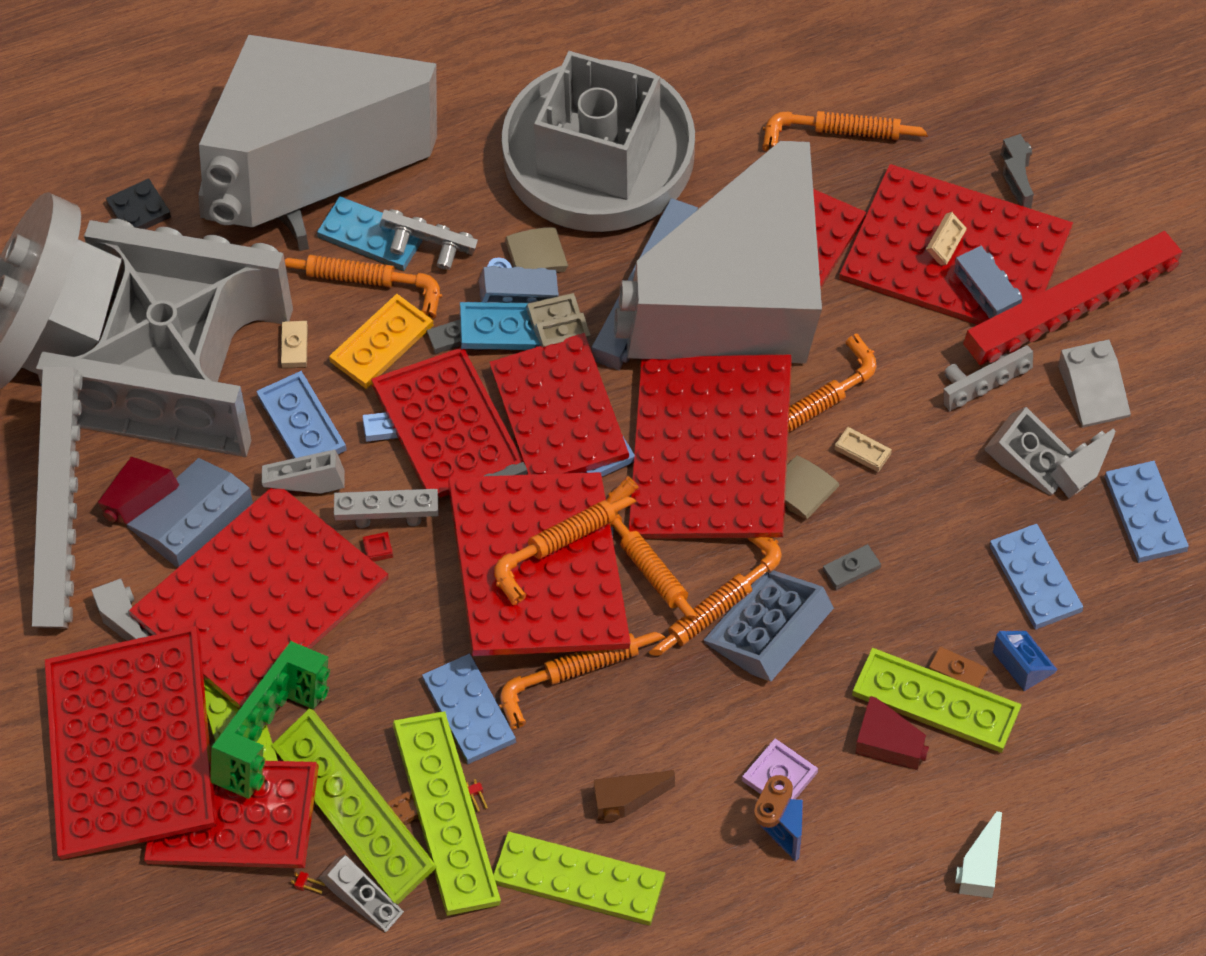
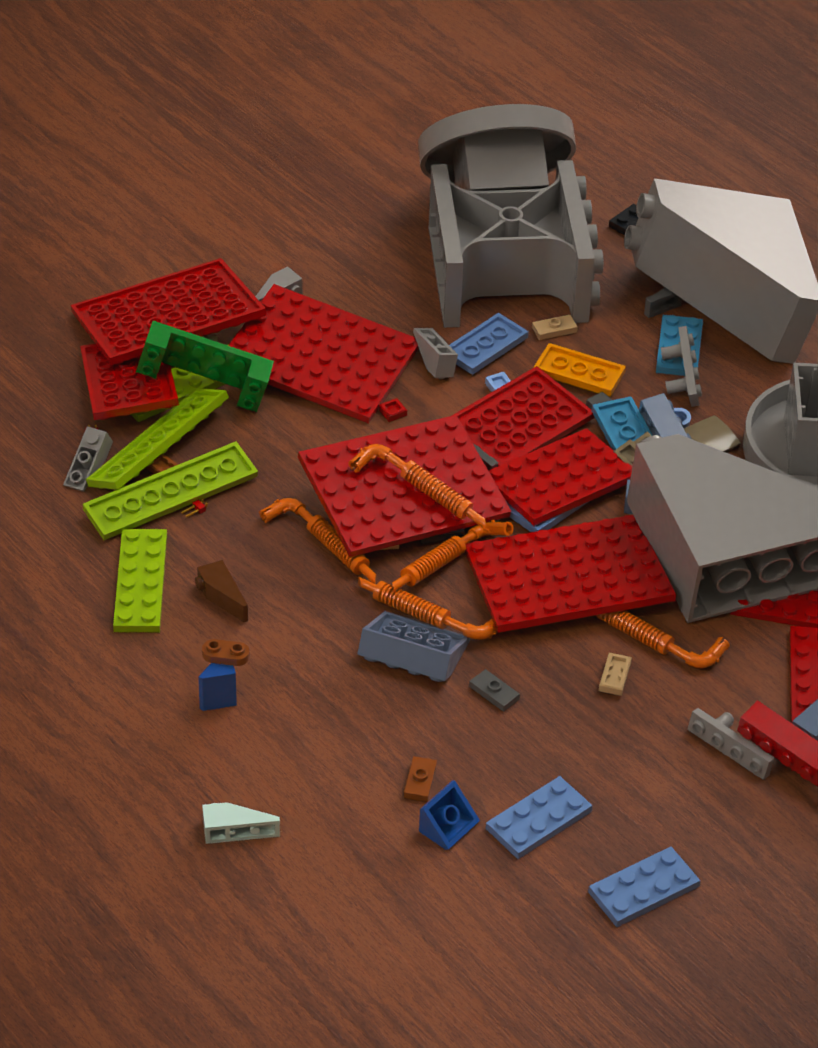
camera: 70 degrees right, 15 degrees down
(55, 498) = (341, 215): light grey brick -> none
(136, 490) = (381, 271): dark red slope -> none
(193, 512) = (380, 305): sand blue slope -> none
(370, 274) = (638, 352): orange piece -> none
(386, 504) = (421, 392): light grey plate -> none
(470, 708) = (277, 481): medium blue plate -> none
(780, 760) = (272, 678): lavender plate -> none
(807, 487) = (558, 642): dark tan slope -> none
(890, 737) = (334, 739): dark red slope -> none
(937, 700) = (382, 768): lime plate -> none
(1028, 449) = (665, 787): light grey slope -> none
(1083, 467) = (666, 825): light grey slope -> none
(1094, 383) = (764, 821): light grey slope -> none

